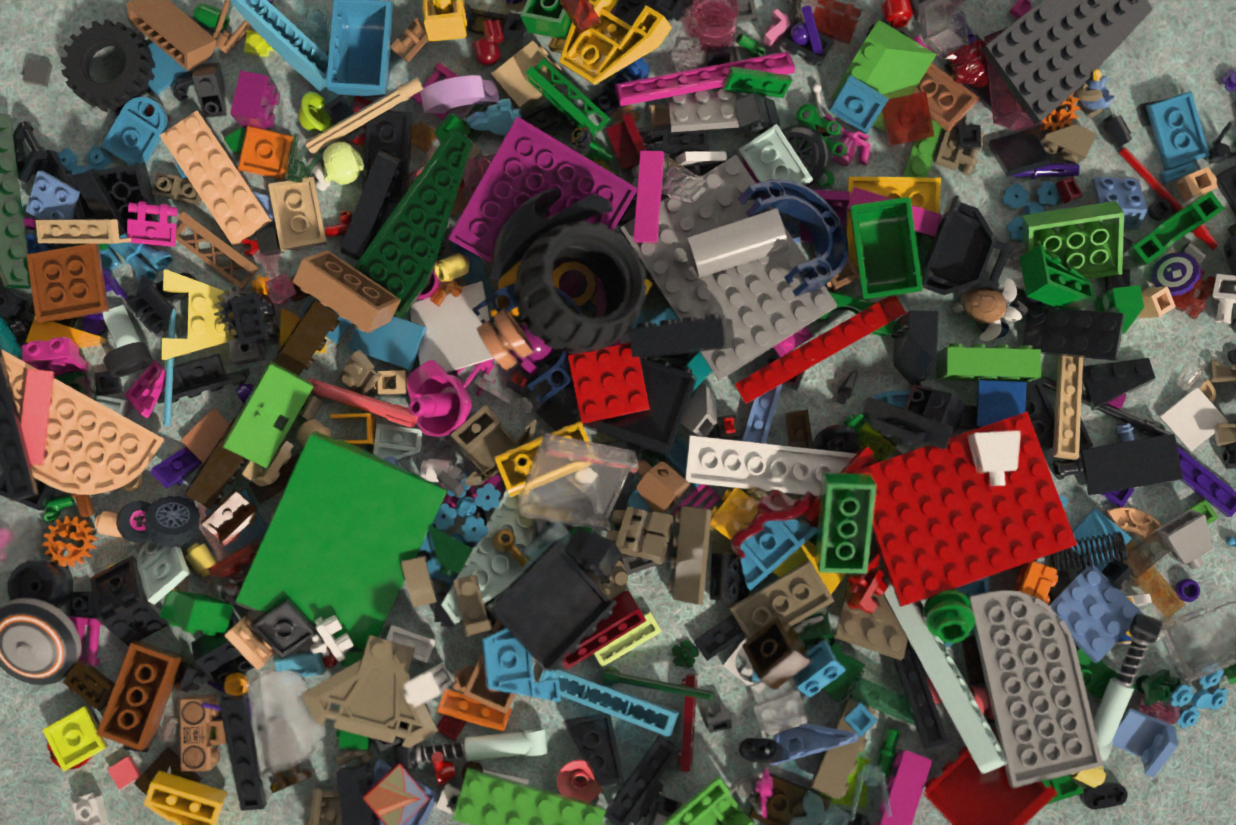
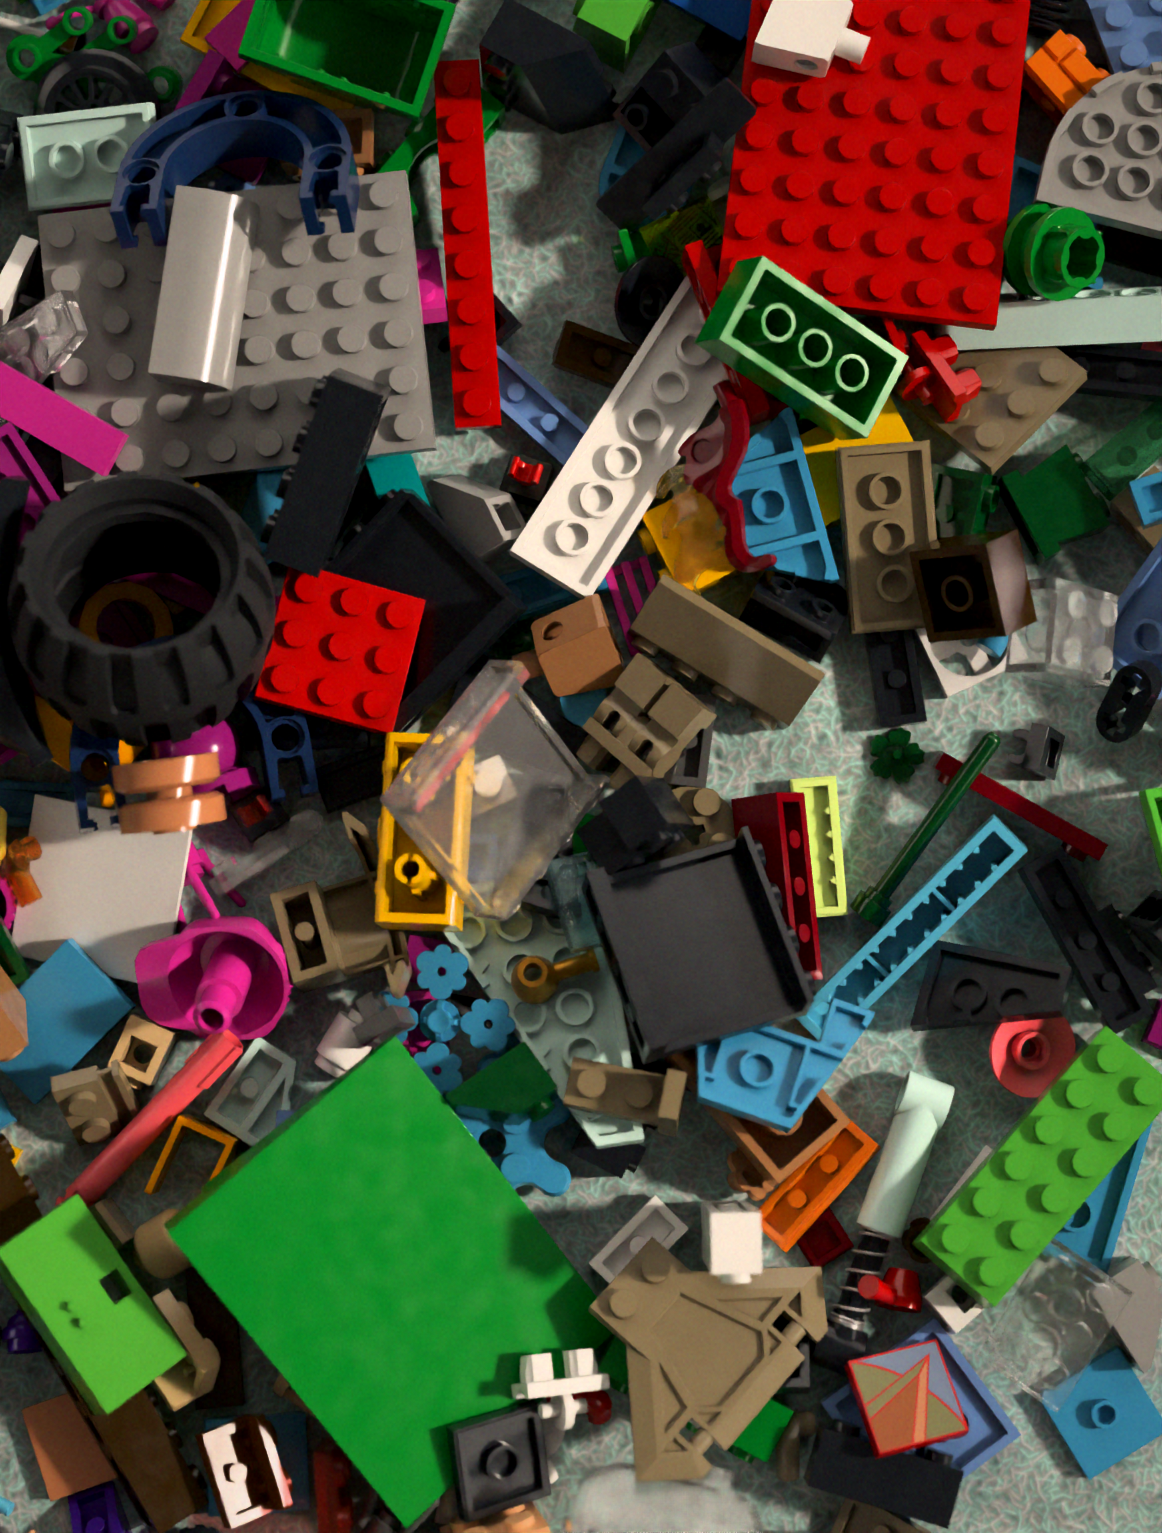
camera: 65 degrees left, 0 degrees up
(304, 663) = (582, 1452): medium azure plate -> none
(418, 581) = (535, 1169): dark tan slope -> none
(820, 671) = (1042, 527): dark azure bracket -> none
(846, 389) = (562, 238): black bar -> none

